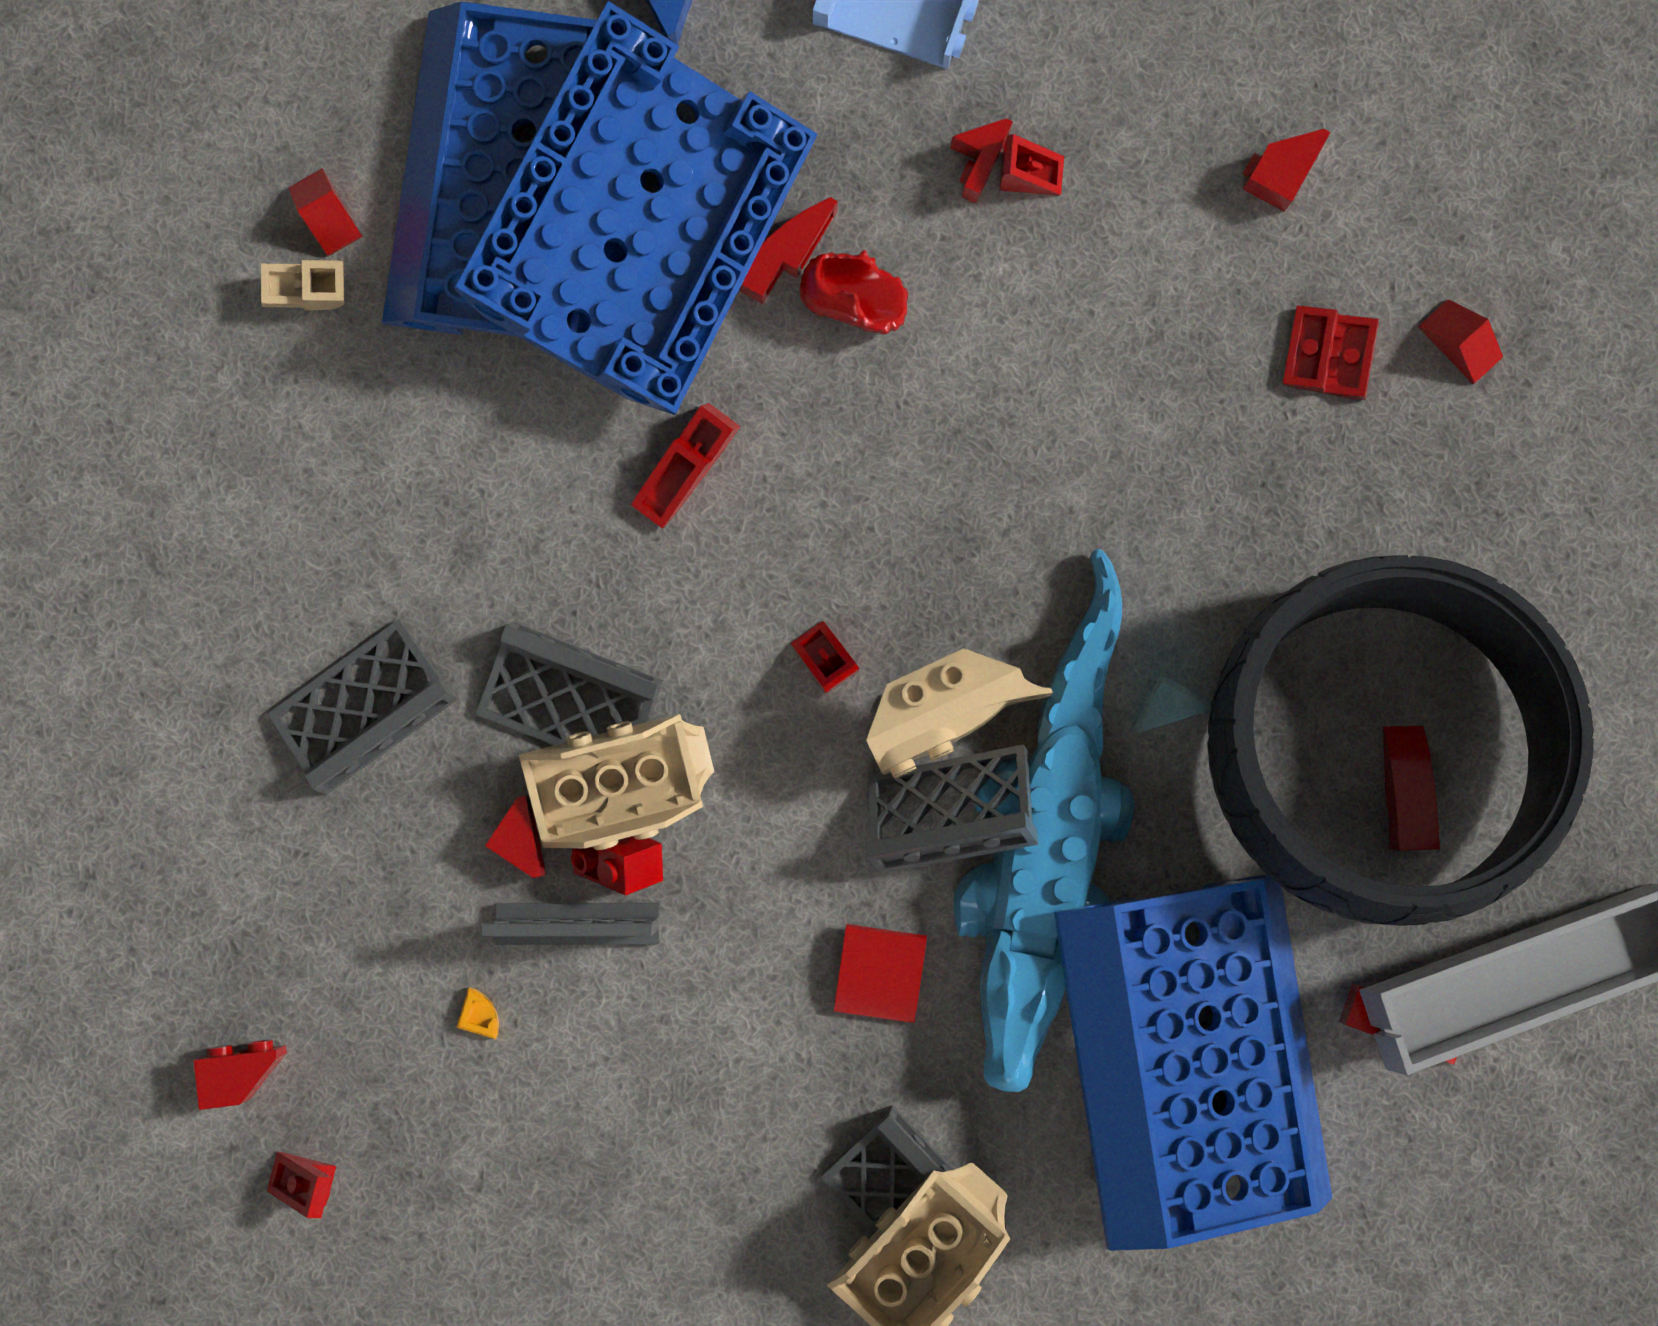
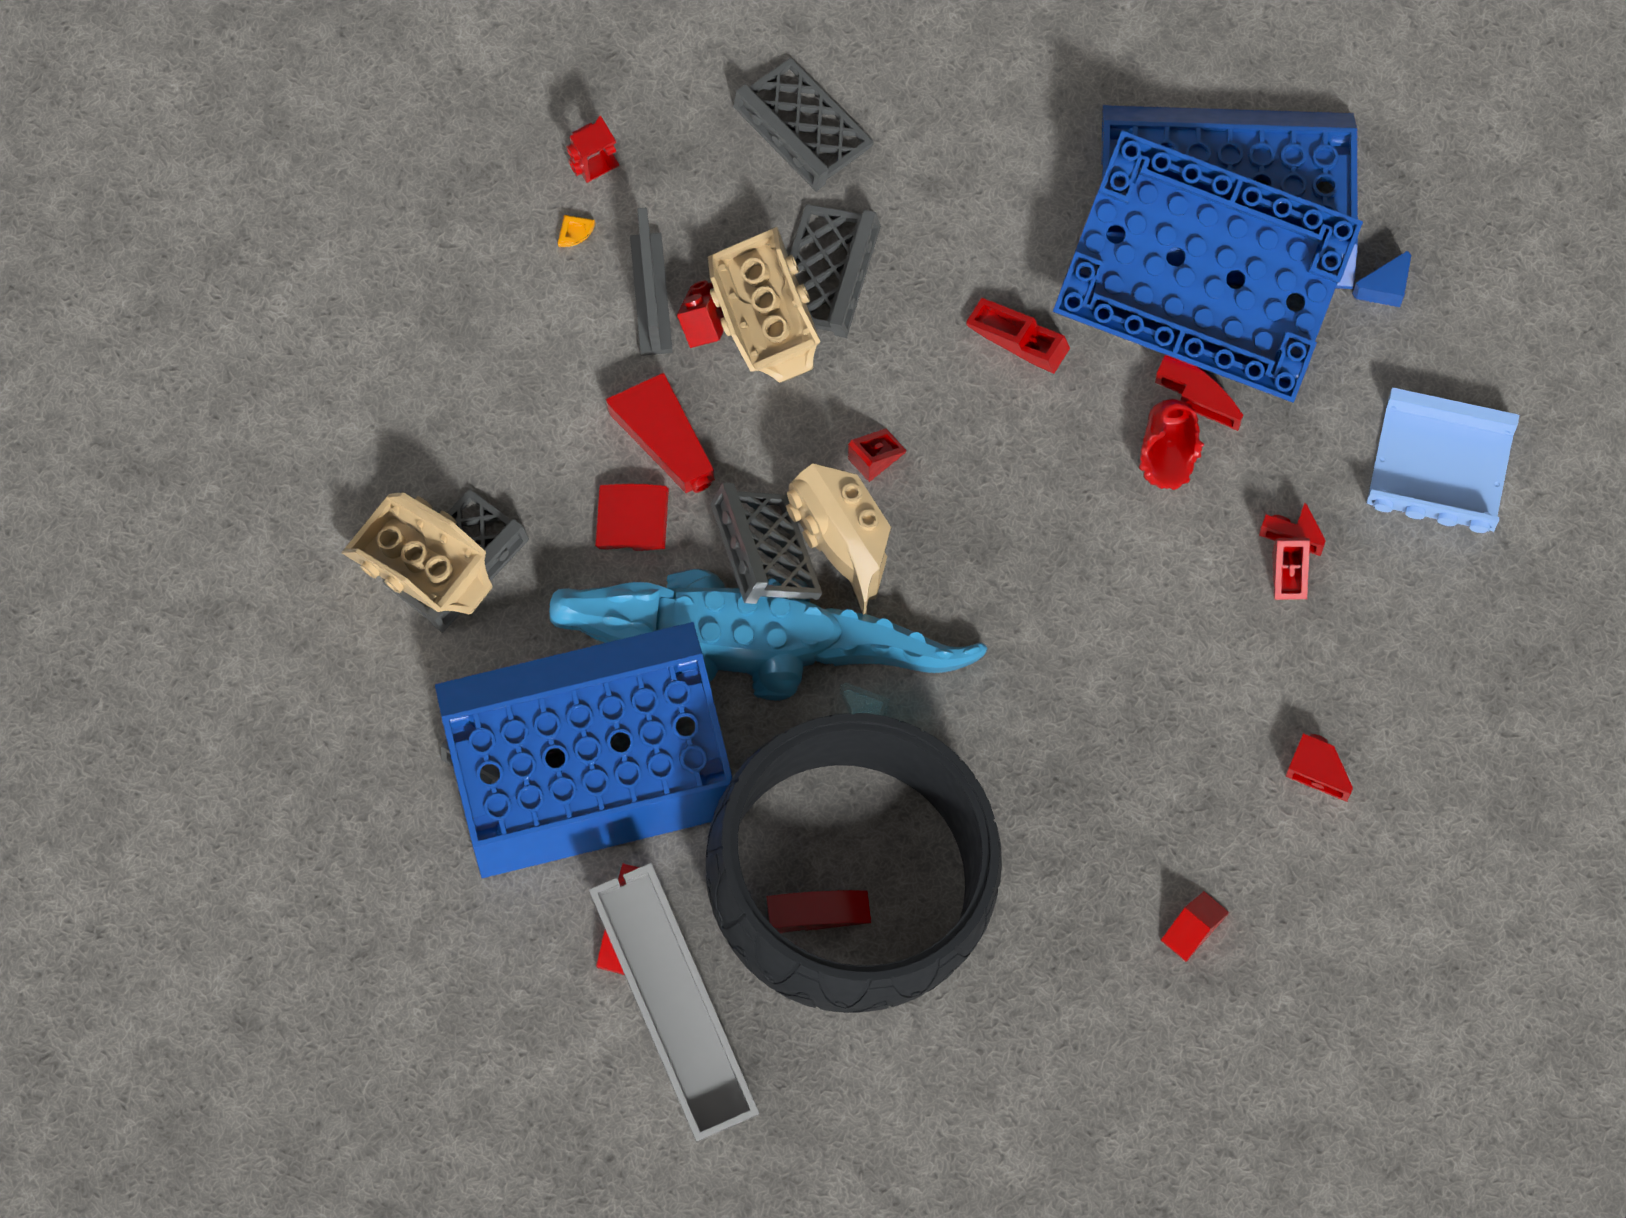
camera: 85 degrees right, 15 degrees down
(234, 1077) = (514, 63): red slope -> none
(301, 1183) = (438, 120): red slope -> none
(304, 285) = (1123, 44): tan brick -> none
(324, 212) = (1183, 55): red slope -> none
(376, 986) = (592, 150): none -> red window
(518, 839) = (708, 240): red slope -> none
(767, 926) = (662, 430): none -> red slope
(1331, 352) = (1171, 821): red slope -> none

